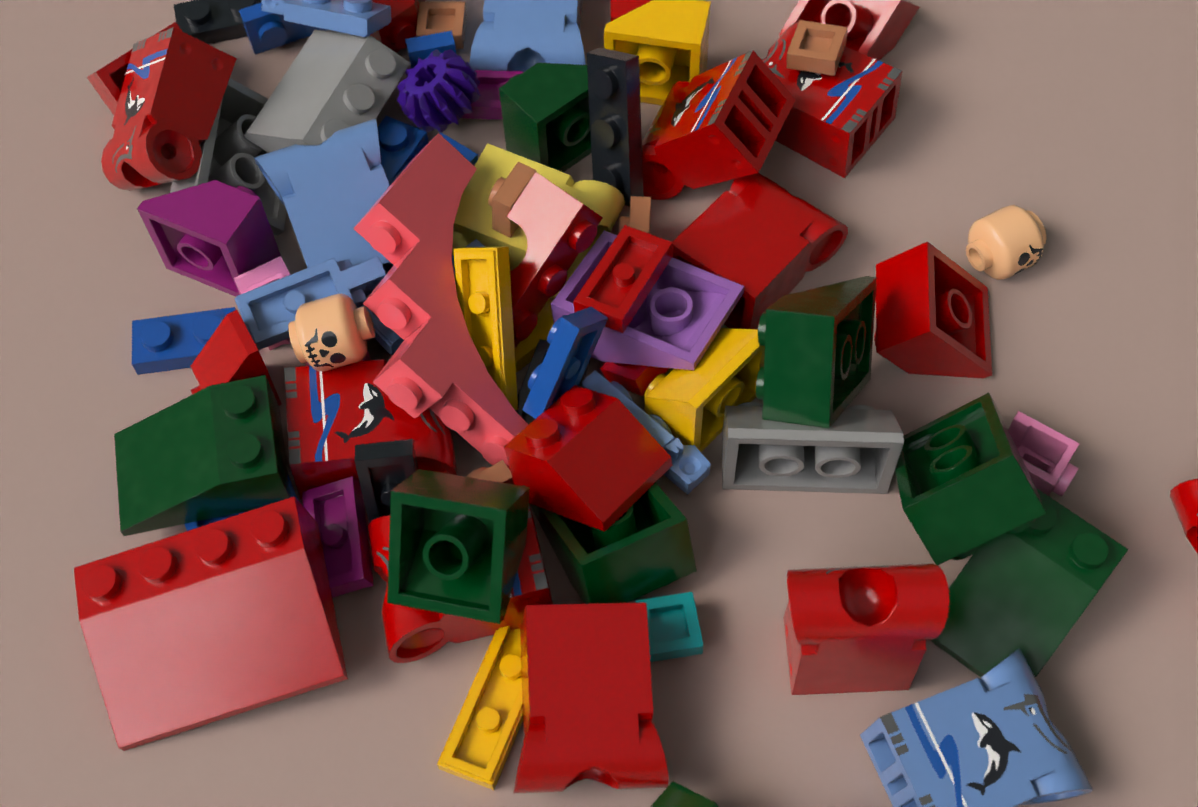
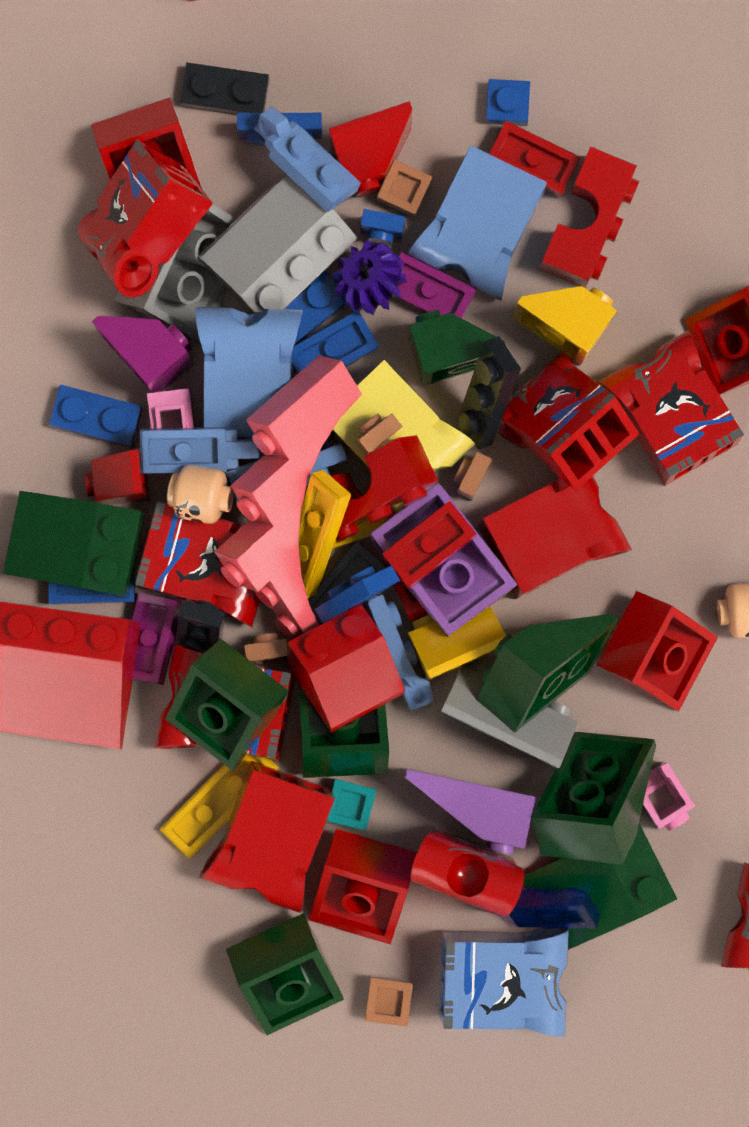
camera: 20 degrees right, 25 degrees up
(735, 719) = (363, 886): none -> red slope
(817, 47) = (684, 386): nougat plate -> none
(818, 534) = (488, 812): none -> medium lavender slope
(986, 633) = (555, 909): none -> clear blue plate

